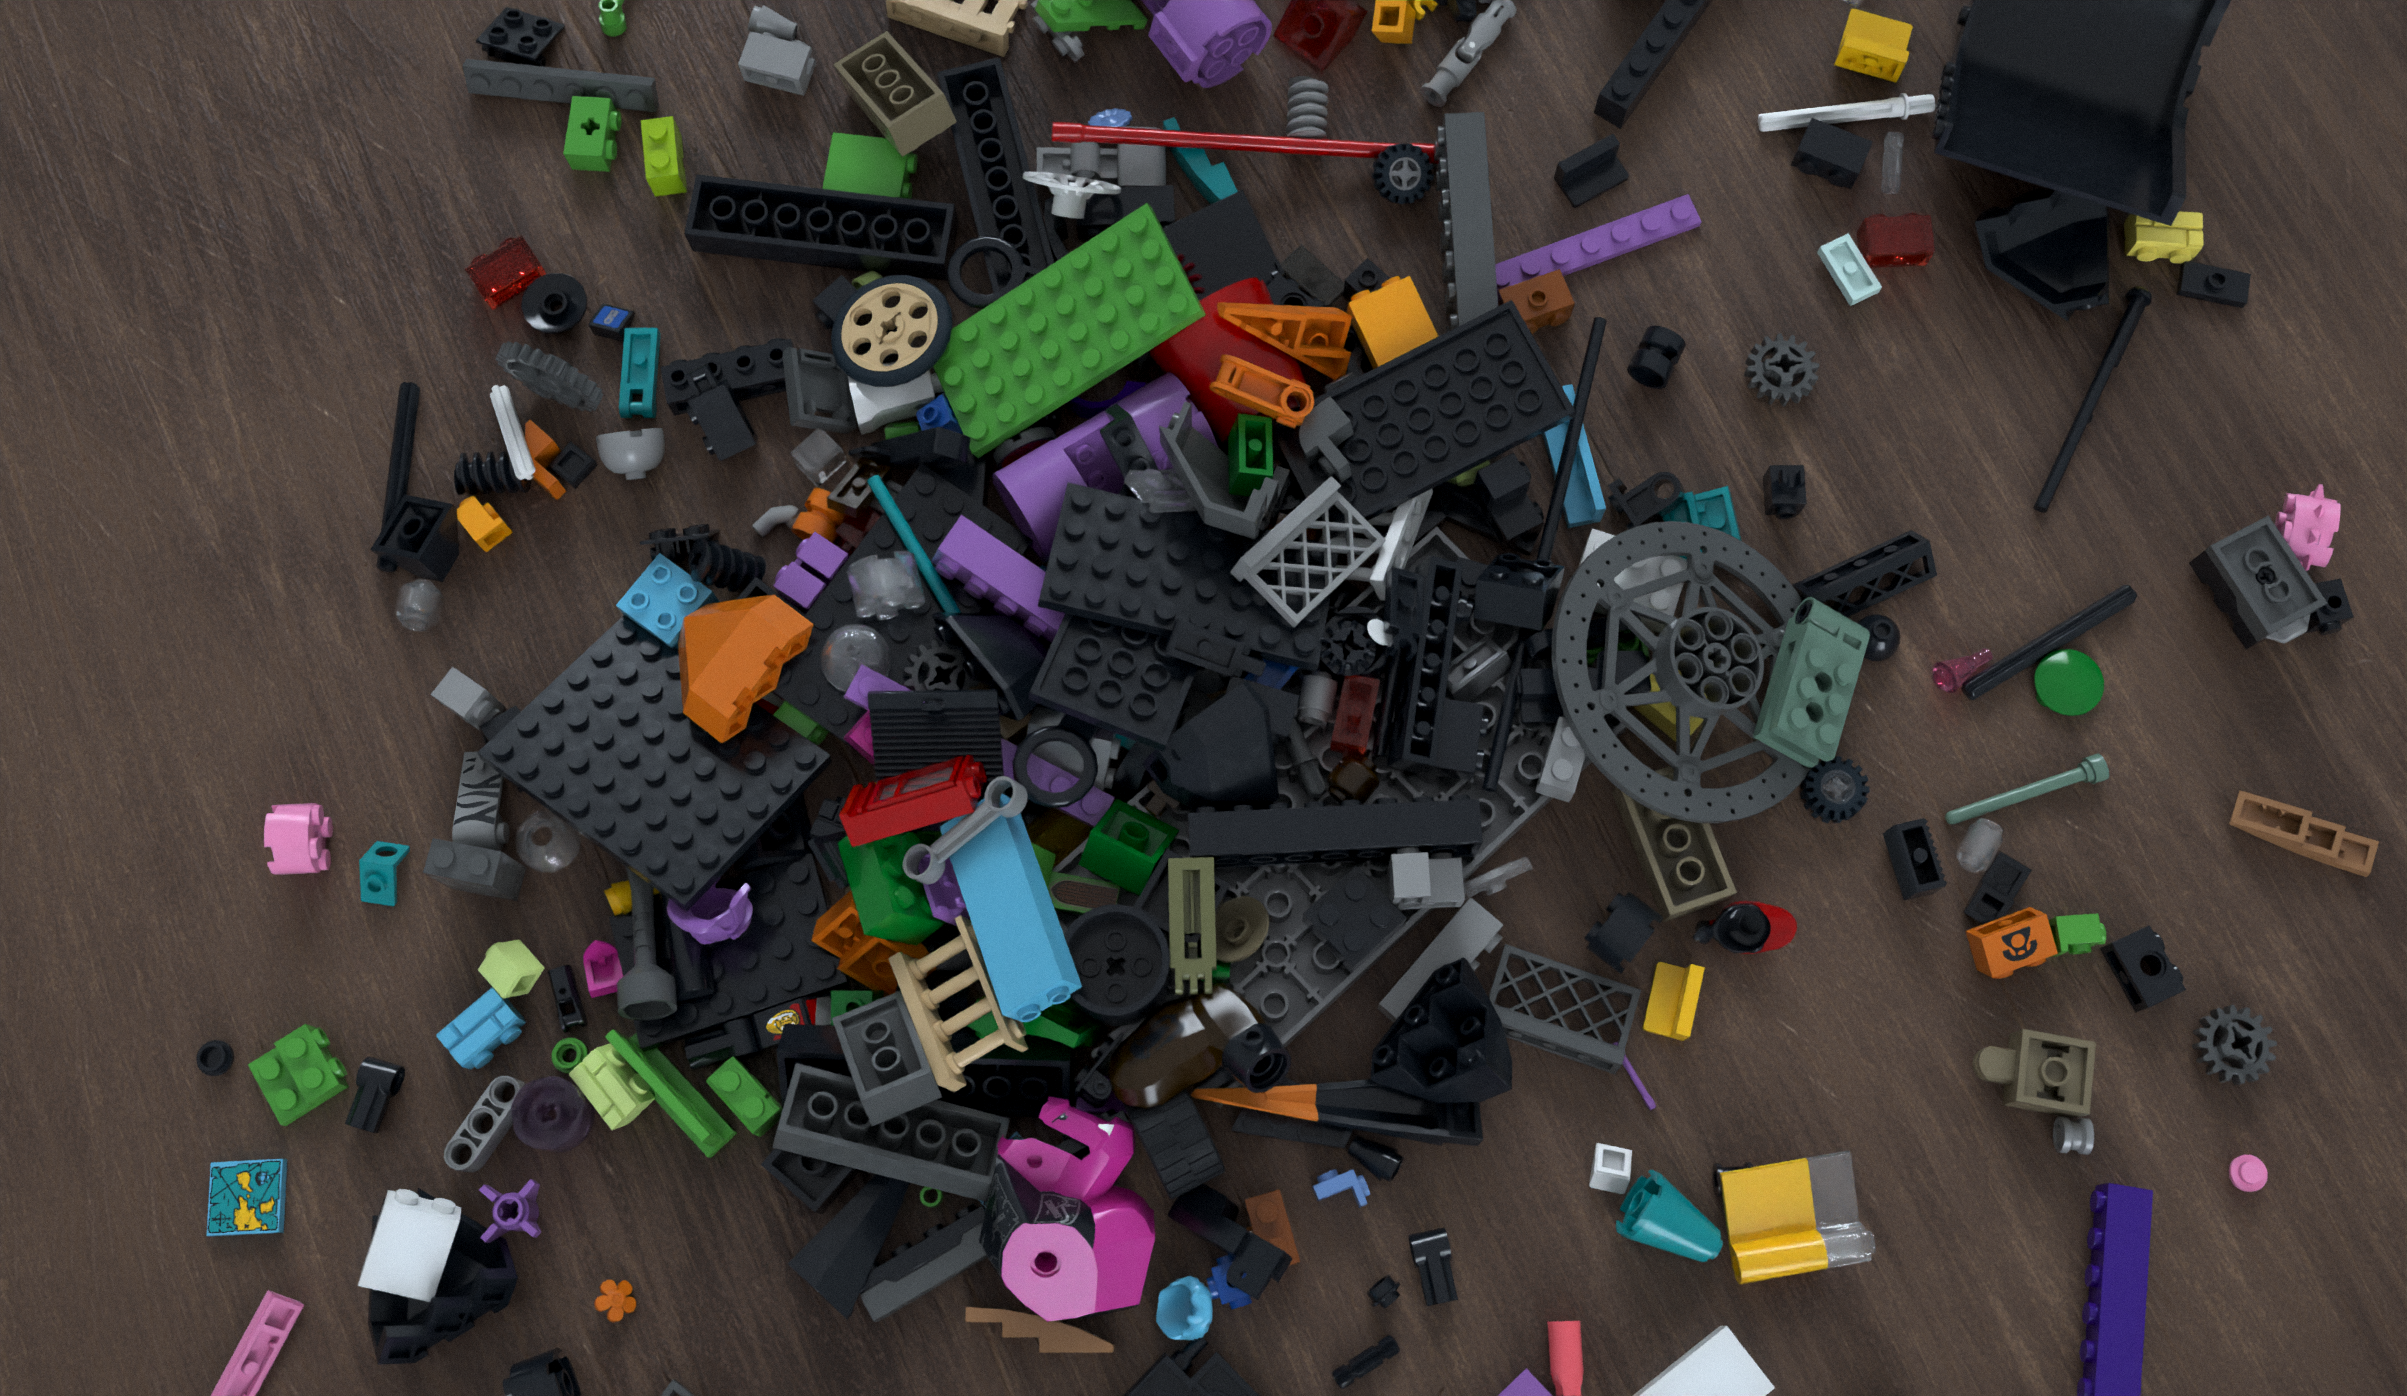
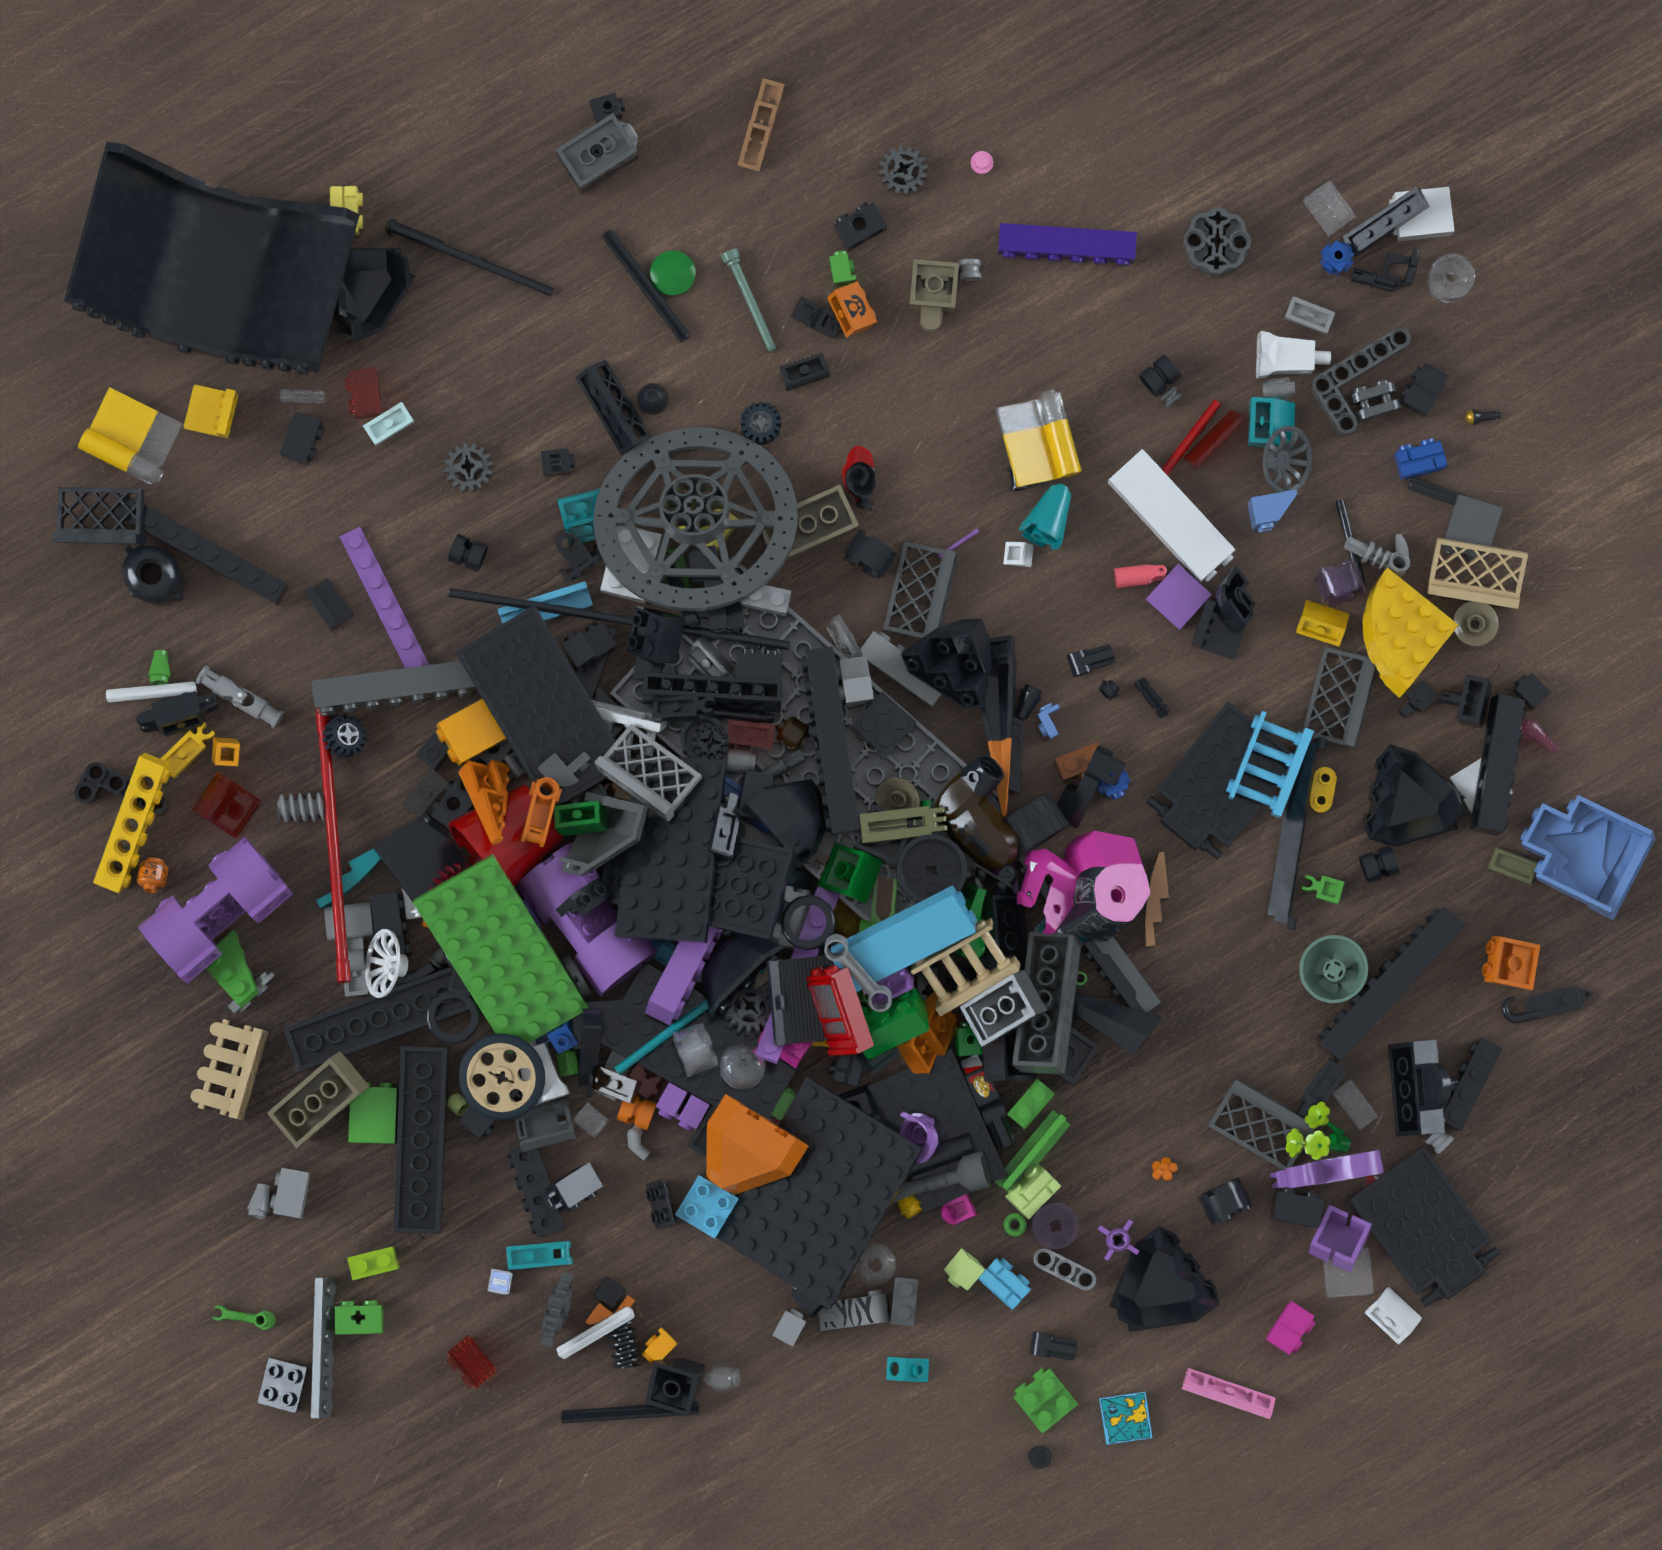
camera: 100 degrees left, 10 degrees up
(298, 838) = (893, 1426): bright pink brick -> none
(410, 1245) = (1146, 1298): white brick -> none
(549, 292) = (484, 1332): black dish -> none
(566, 993) = (975, 1234): black bar -> none
(632, 451) = (600, 1248): light grey cylinder -> none
(724, 565) = (680, 1168): black piece -> none
(1111, 118) = (317, 947): medium blue piece -> none
(1160, 489) = (614, 874): clear plate -> none
(1185, 1309) = (1133, 811): medium azure hair -> none
(1376, 631) = (698, 724): white sticker -> none
(1540, 300) = (433, 637): dark orange brick -> none
(1673, 1000) = (908, 520): yellow panel -> none
(1812, 683) = (694, 440): sand green hinge -> none
(1891, 107) = (267, 429): white axle -> none
(1952, 673) = (674, 348): clear pink cone -> none
(1979, 845) = (789, 329): clear brick -> none
(2213, 284) = (376, 176): black plate -> none
(2309, 526) = (557, 120): bright pink brick -> none

